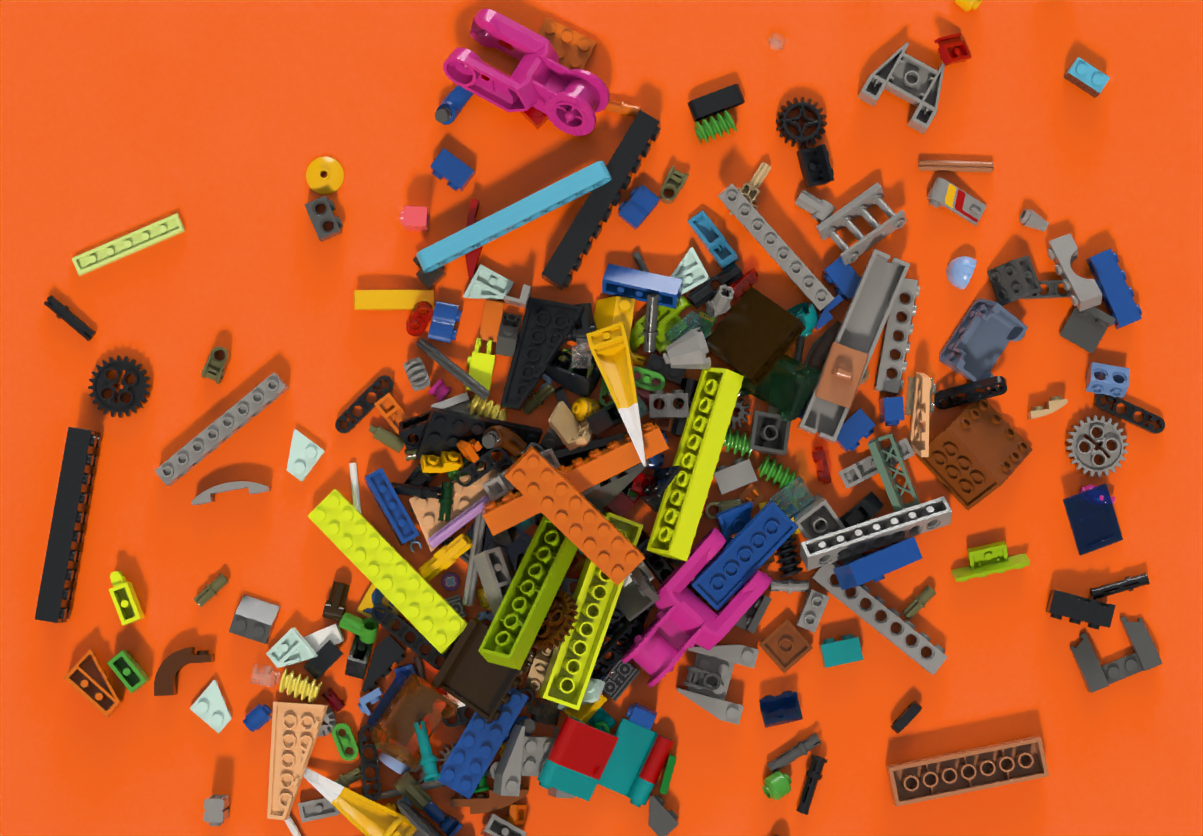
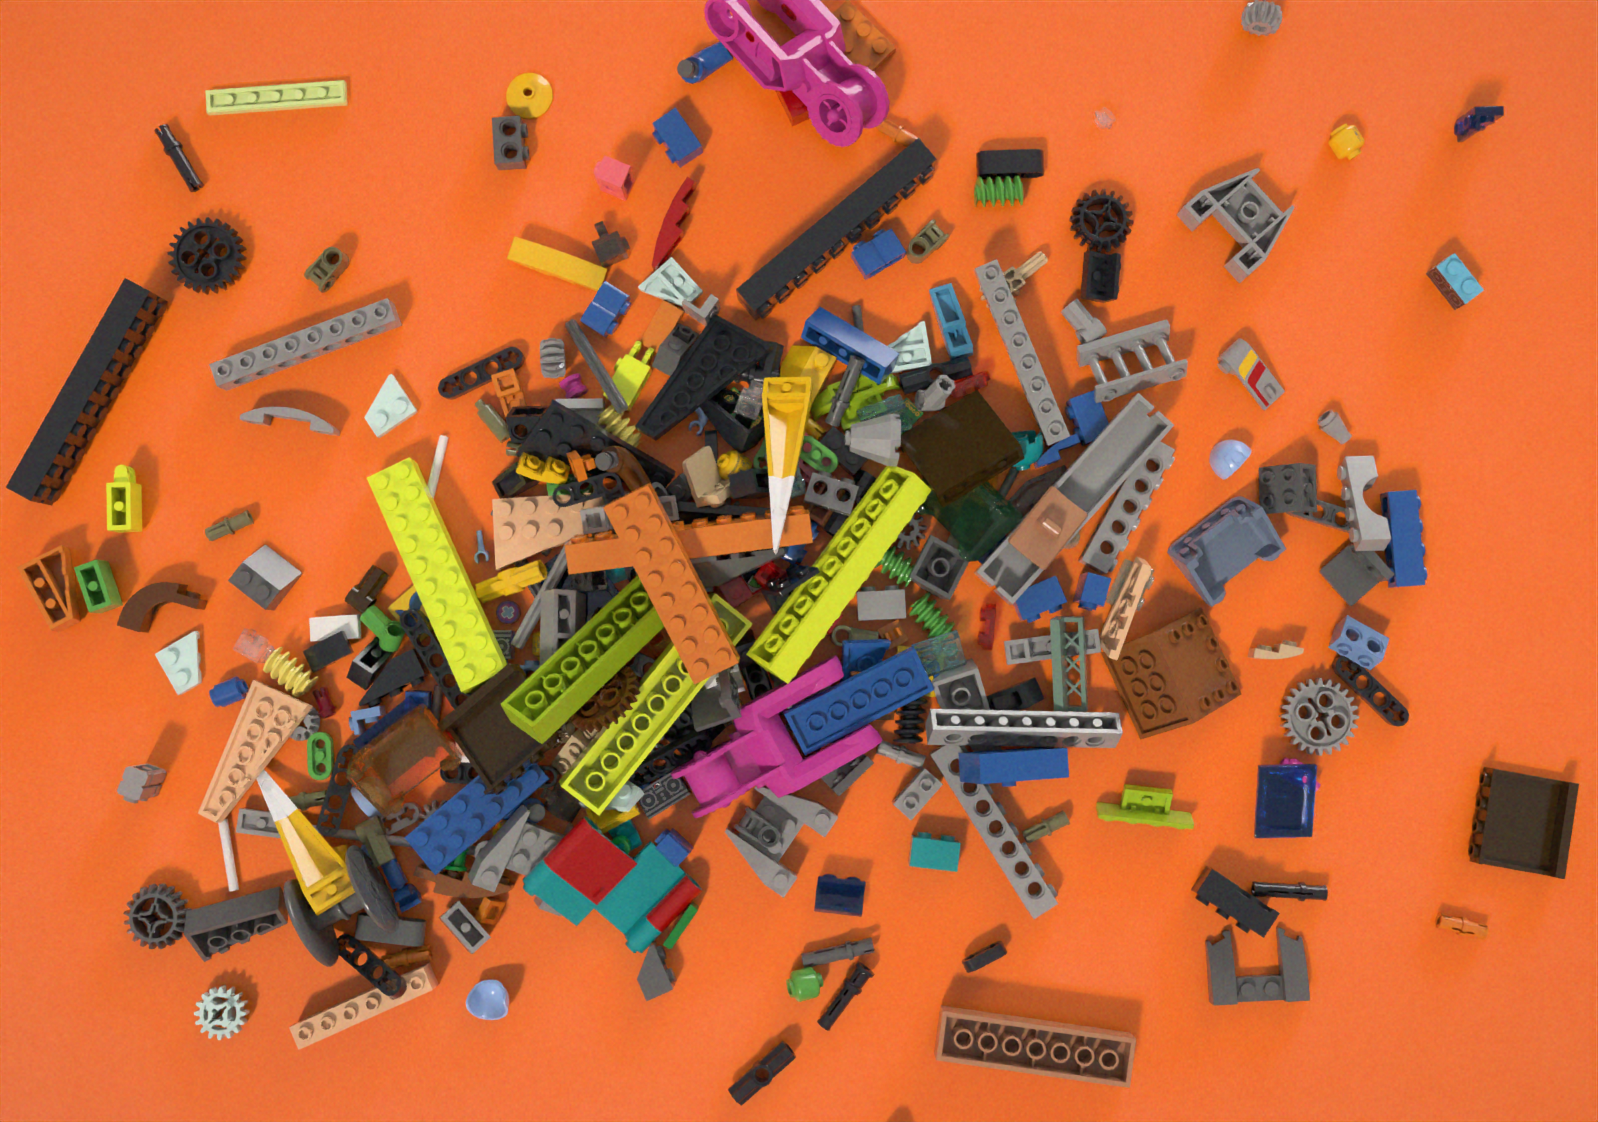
camera: 25 degrees right, 0 degrees up
(291, 649) = (294, 626): light aqua wing -> none
(391, 506) = (469, 500): blue fence -> none
(419, 316) = (579, 293): clear red plate -> none
(422, 491) = (509, 495): black pin -> none
(428, 761) = (403, 811): teal pin -> none
(446, 502) = (533, 516): dark green pin -> none
(458, 522) = (537, 546): lavender axle -> none
(513, 216) = (727, 211): medium azure beam -> none
(538, 398) = (683, 435): olive axle -> none
(785, 646) = (871, 823): dark orange plate -> none
(953, 49) = (1308, 195): red plate -> none
(955, 166) = (1265, 333): nougat axle -> none
(971, 394) = (1192, 605): black beam -> none

